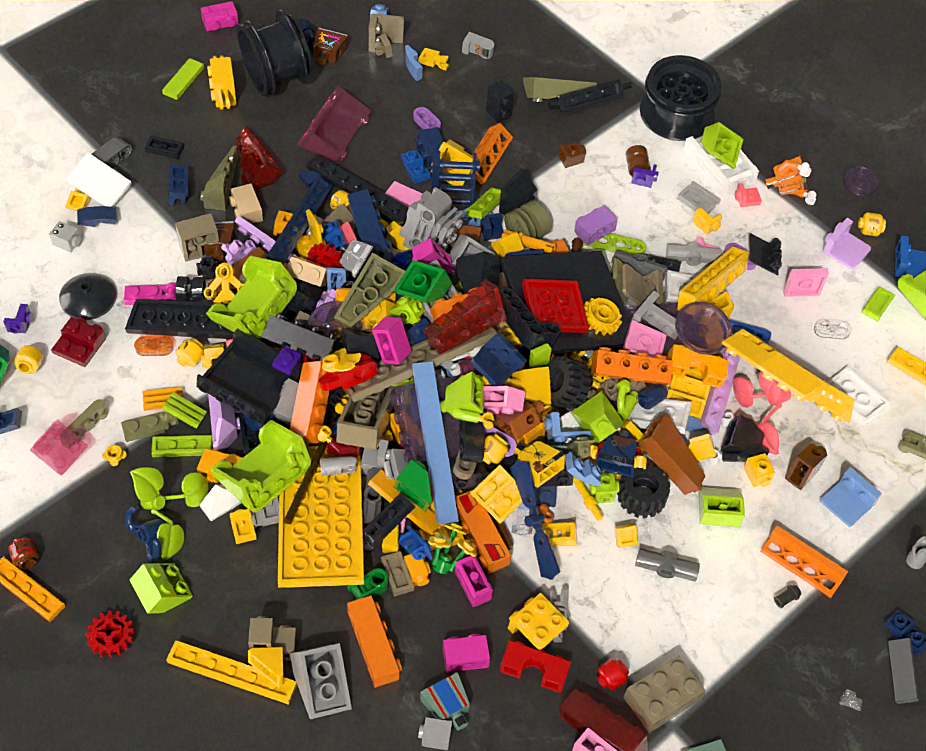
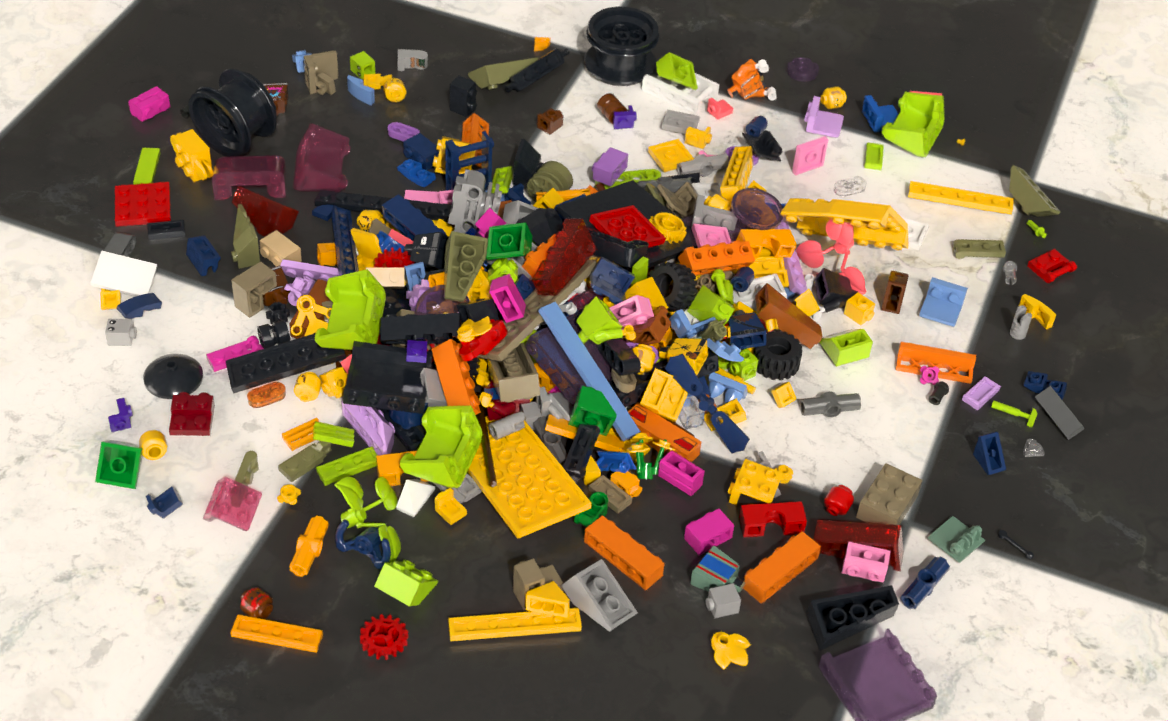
camera: 25 degrees left, 10 degrees down
(100, 514) = (309, 546): none -> light orange piece
(159, 114) = (142, 204): none -> red plate
(265, 116) = (249, 171): none -> clear pink windscreen
(429, 37) = (362, 64): none -> lime brick
(445, 72) = (394, 90): none -> yellow head
(513, 721) = (781, 567): none -> orange brick
(574, 625) = (786, 473): none -> yellow plate
(578, 513) = (733, 389): none -> medium blue tile
(613, 67) = (541, 43): none -> light orange tile
(667, 230) = (669, 154): none -> yellow plate
(669, 305) = (718, 202): none -> yellow head
(773, 229) = (757, 126): none -> dark blue brick
(783, 574) = (929, 370): none -> dark pink plate
(799, 688) = (989, 453): none -> dark blue slope
(834, 613) = (981, 393): none -> lavender tile
(871, 663) = (1016, 412): none -> lime piece

